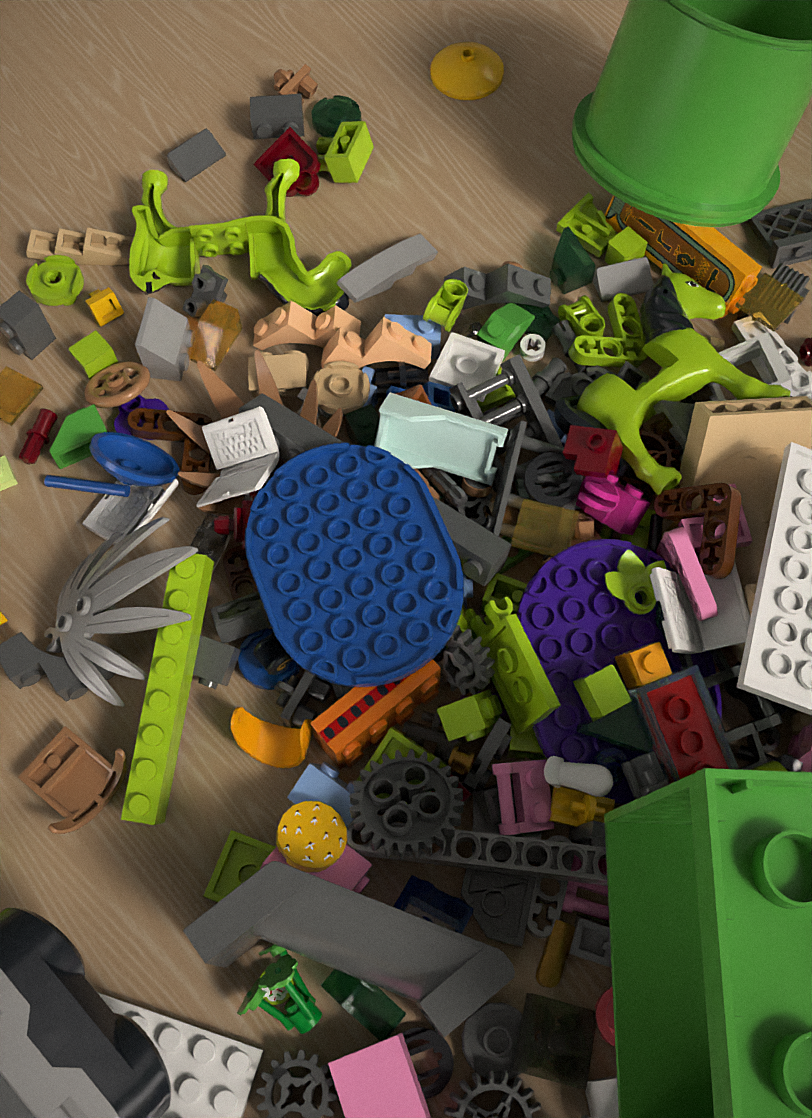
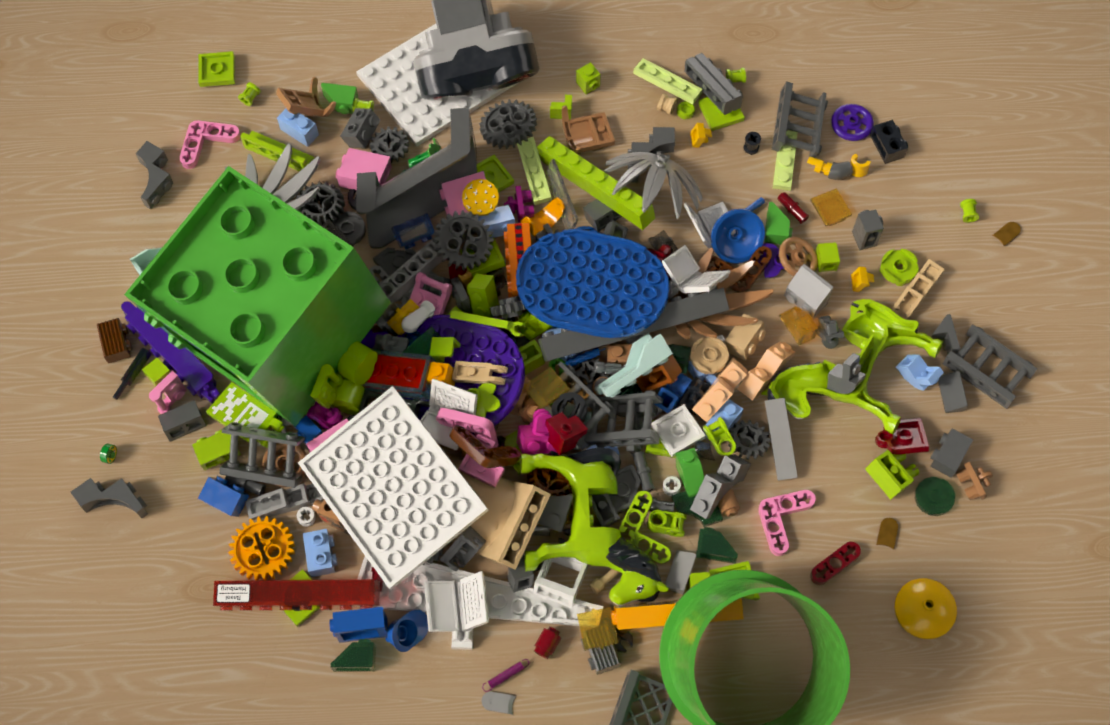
camera: 125 degrees right, 0 degrees up
(45, 852) = (556, 108): none -> lime panel
(100, 914) = (508, 124): none -> dark grey gear
(122, 191) = (947, 333): none -> dark grey slope
(159, 147) = (986, 383): none -> dark grey fence
(192, 813) = (534, 171): none -> yellowish green plate
(197, 189) = (918, 373): none -> light blue brick
(210, 742) = (559, 190): none -> clear windscreen
(265, 229) = (846, 377): none -> dark grey brick
(272, 792) = (521, 197): none -> magenta hips
(411, 294) = (749, 437): none -> dark grey gear
(412, 136) = (887, 532): none -> pearl gold piece
(474, 234) = (778, 511): none -> bright pink beam
(493, 166) = (827, 576): none -> dark red beam
(604, 613) = (478, 373): none -> tan hinge

